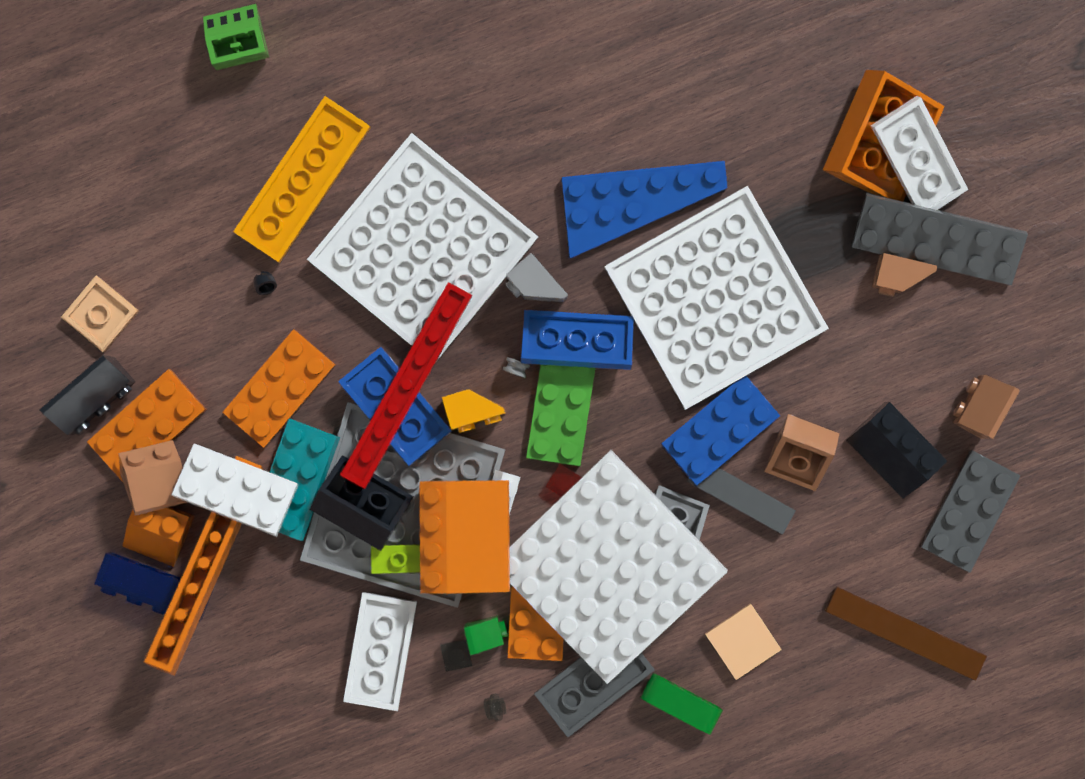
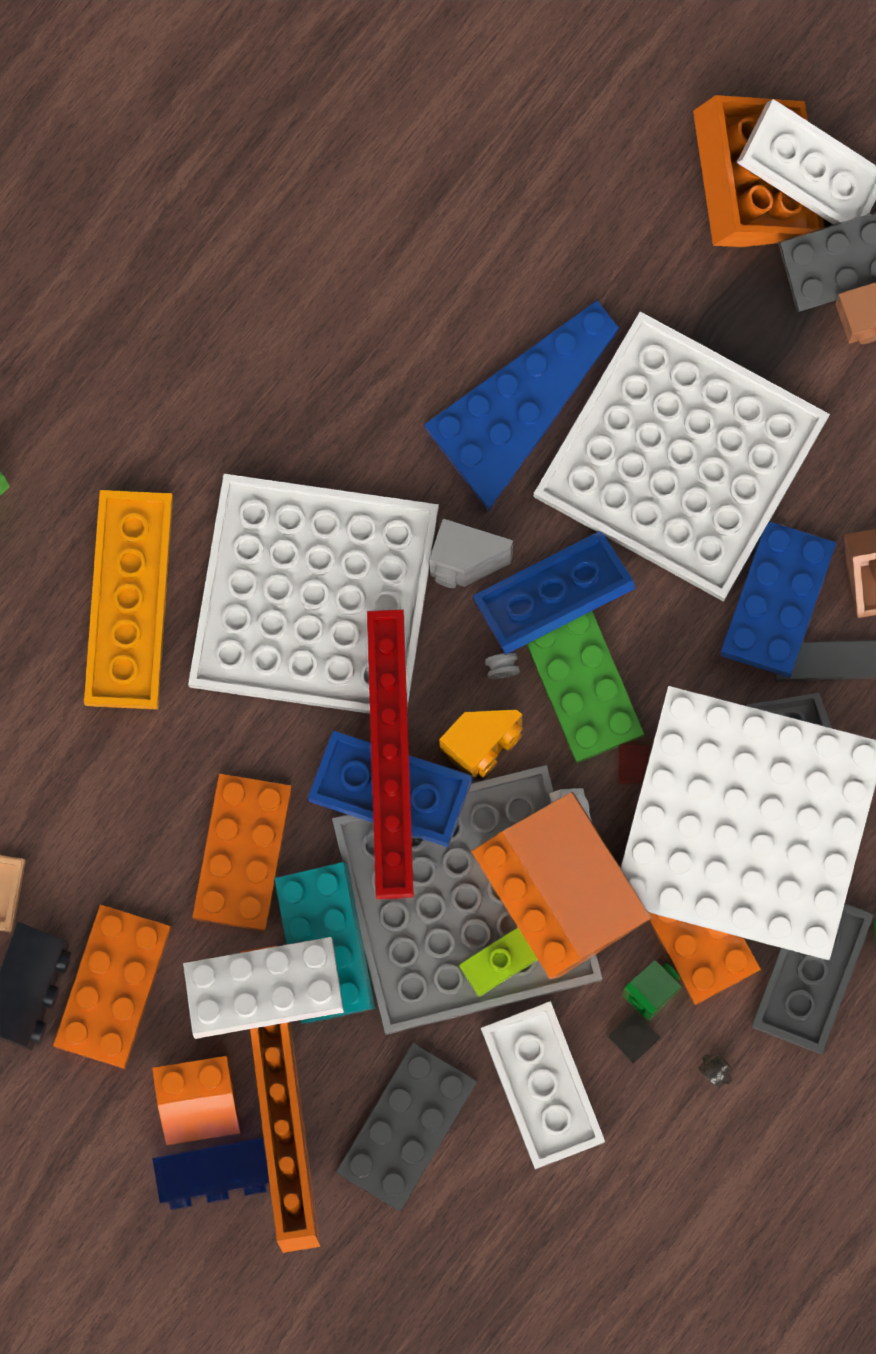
camera: 25 degrees left, 10 degrees down
(151, 476) = (155, 1034): nougat slope -> none
(264, 283) = (161, 745): black hinge -> none
(279, 625) = (406, 1127): none -> dark grey plate
(365, 513) = (419, 929): black slope -> none

